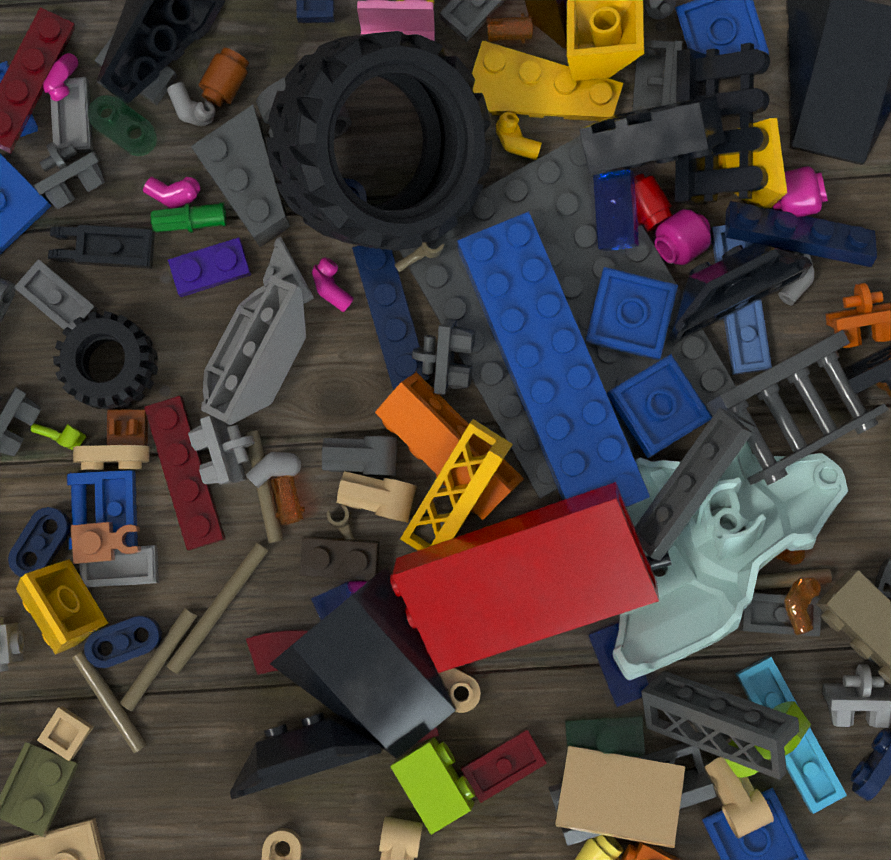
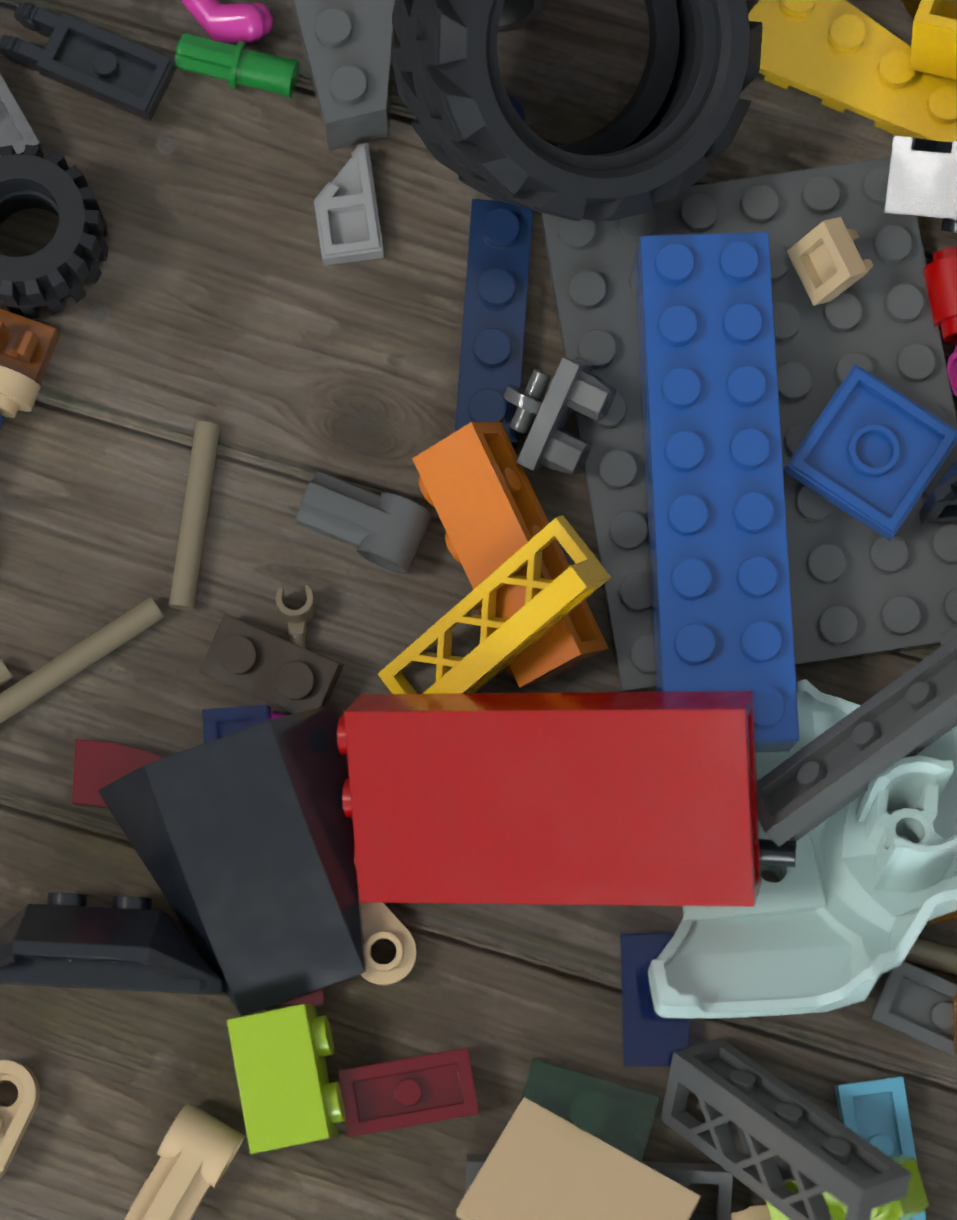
camera: 10 degrees right, 5 degrees down
(181, 467) = (79, 450): dark red plate -> none
(209, 267) = (240, 151): dark purple plate -> none
(225, 448) = (158, 432): light grey hips -> none
(255, 352) = (263, 300): light grey wedge -> none
(274, 464) = (225, 485): light grey arm -> none
(287, 500) = (223, 548): clear orange pin -> none
(326, 285) = (410, 243): dark pink arm -> none
(384, 497) = (381, 601): tan piece -> none
(418, 253) = (576, 242): dark tan hand -> none
(512, 138) = (783, 125): yellow arm -> none
(567, 212) = (828, 260): none -> tan tile
(616, 210) = (905, 286): clear blue plate -> none
(659, 406) = (864, 610): blue plate -> none

